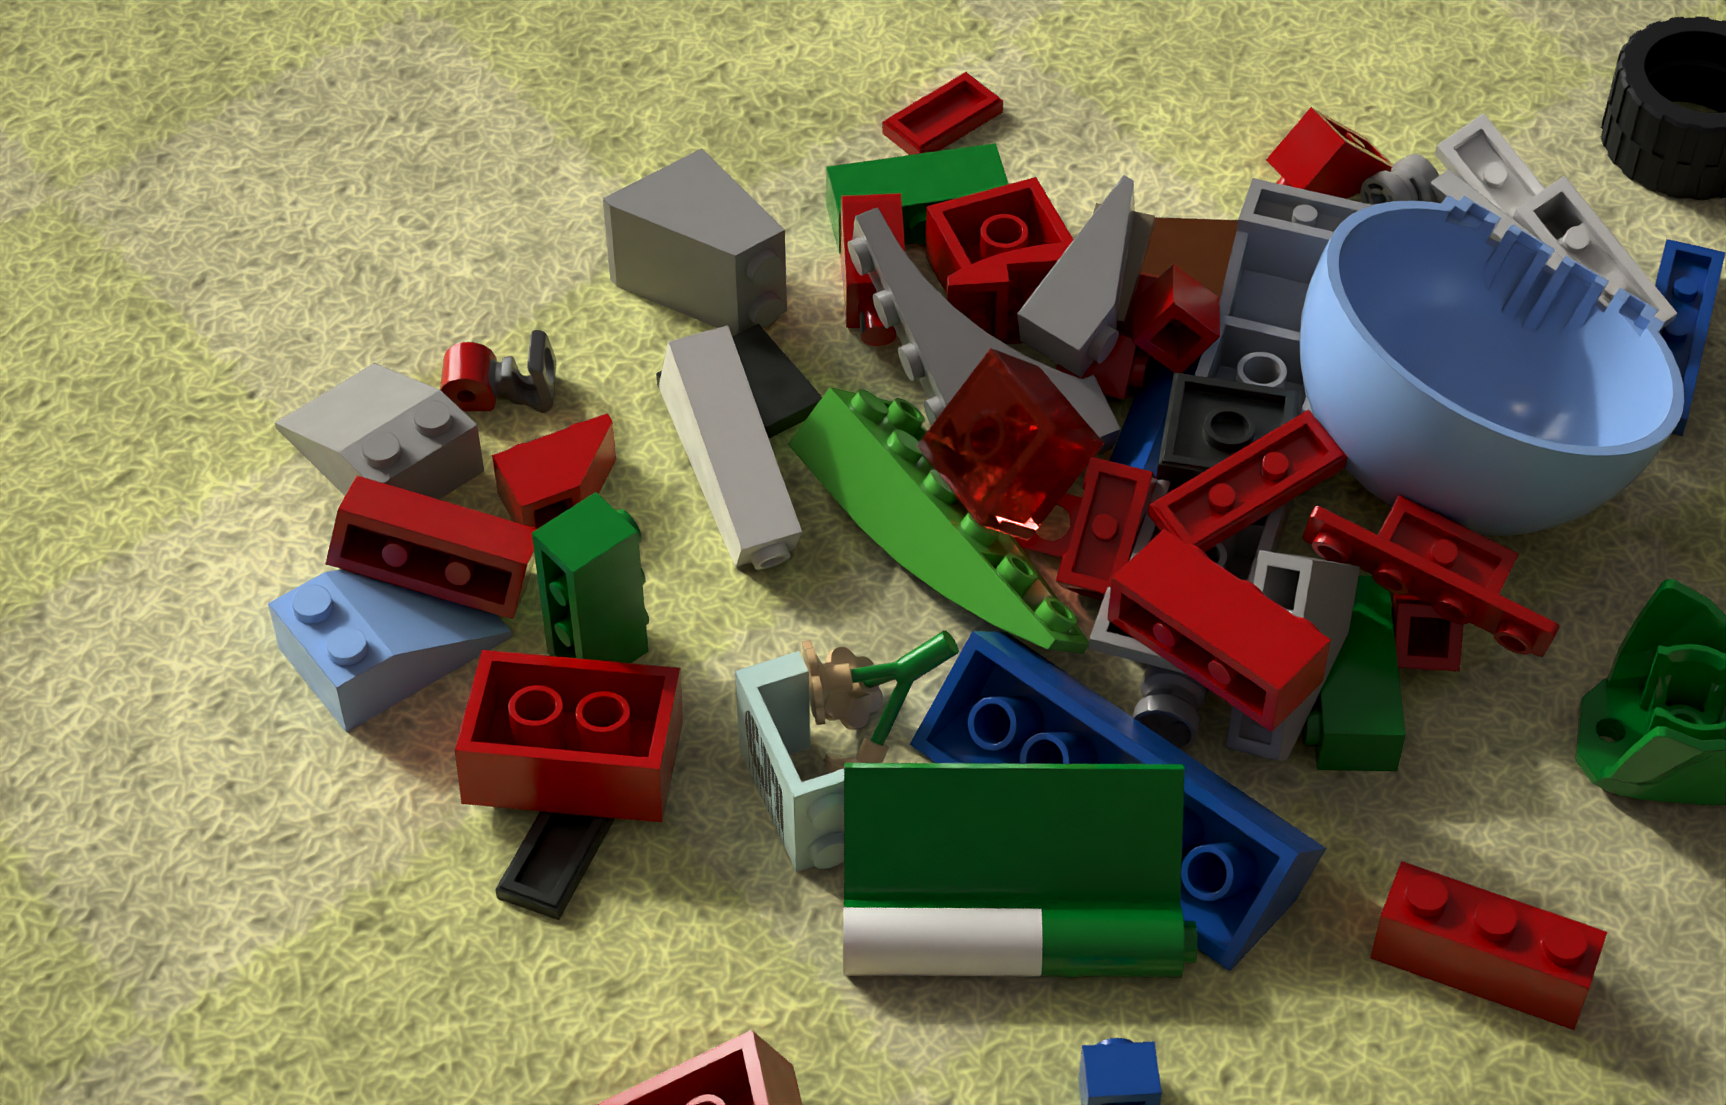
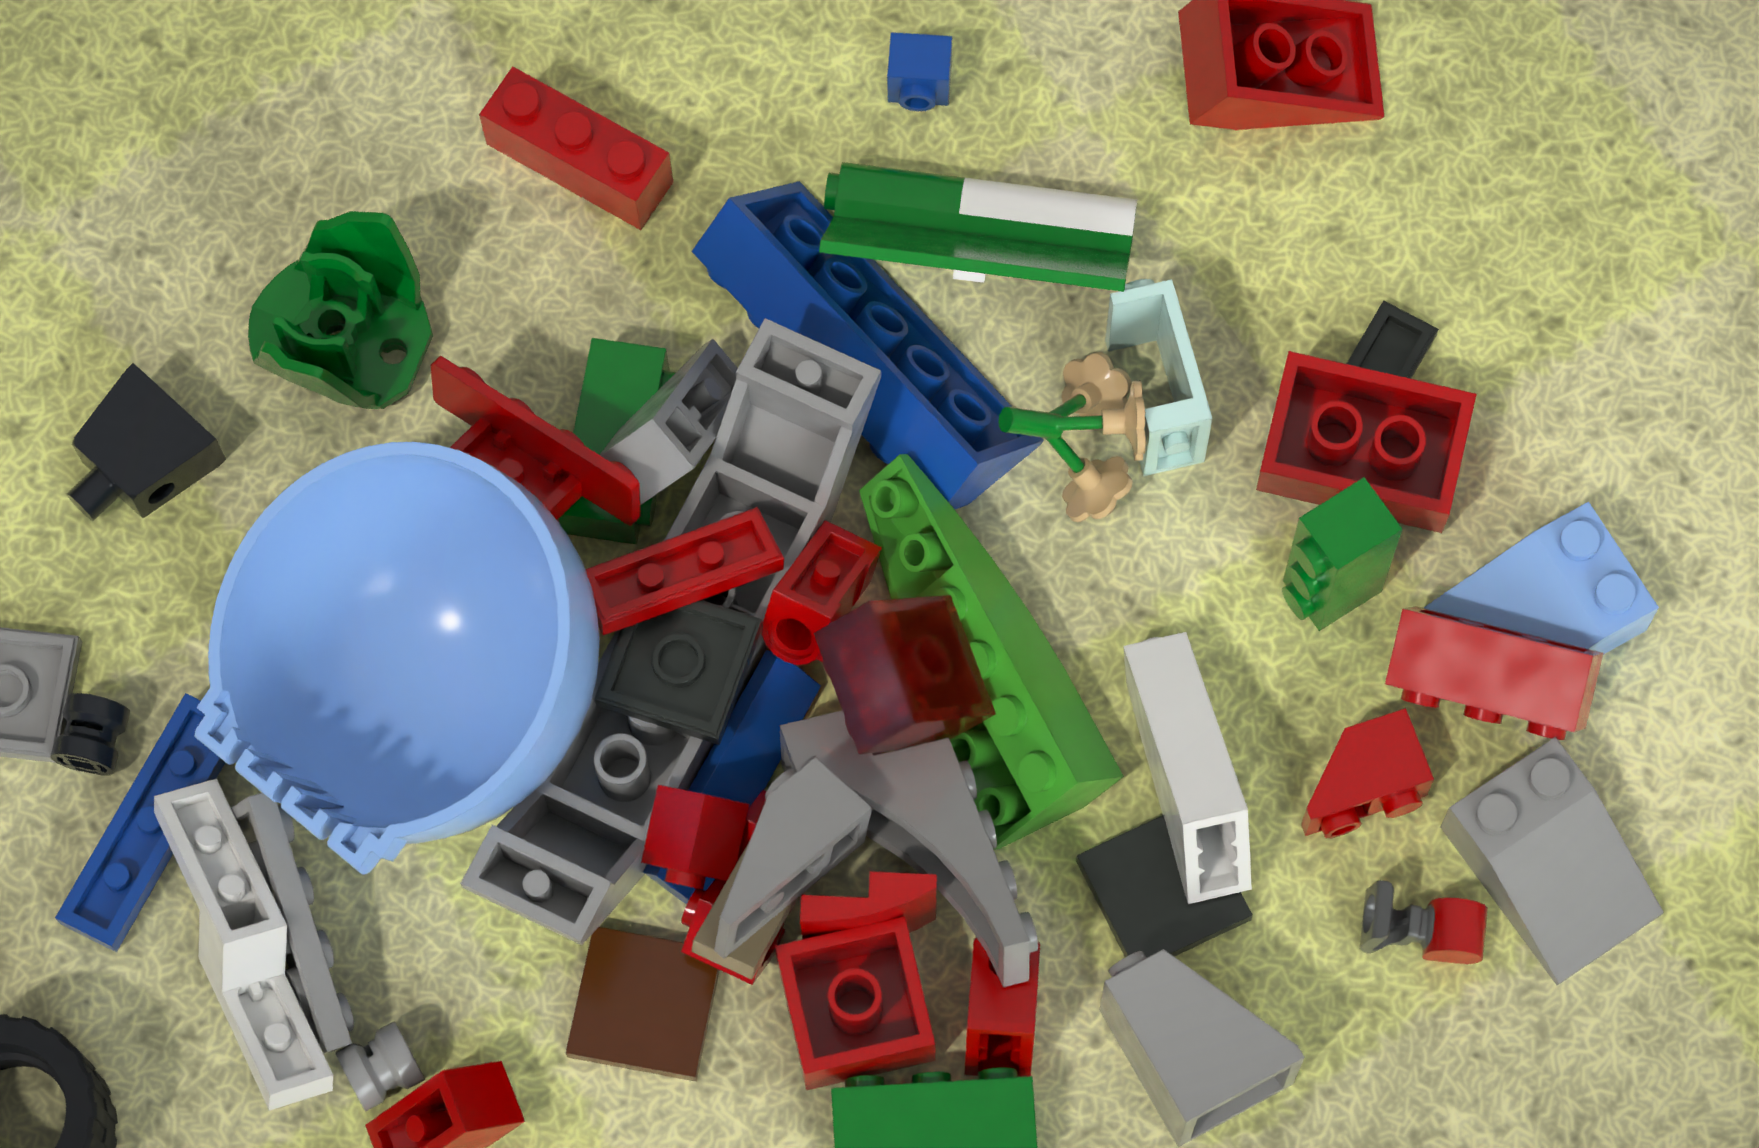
camera: 170 degrees left, 20 degrees up
(1218, 629) = (765, 331): red brick -> none

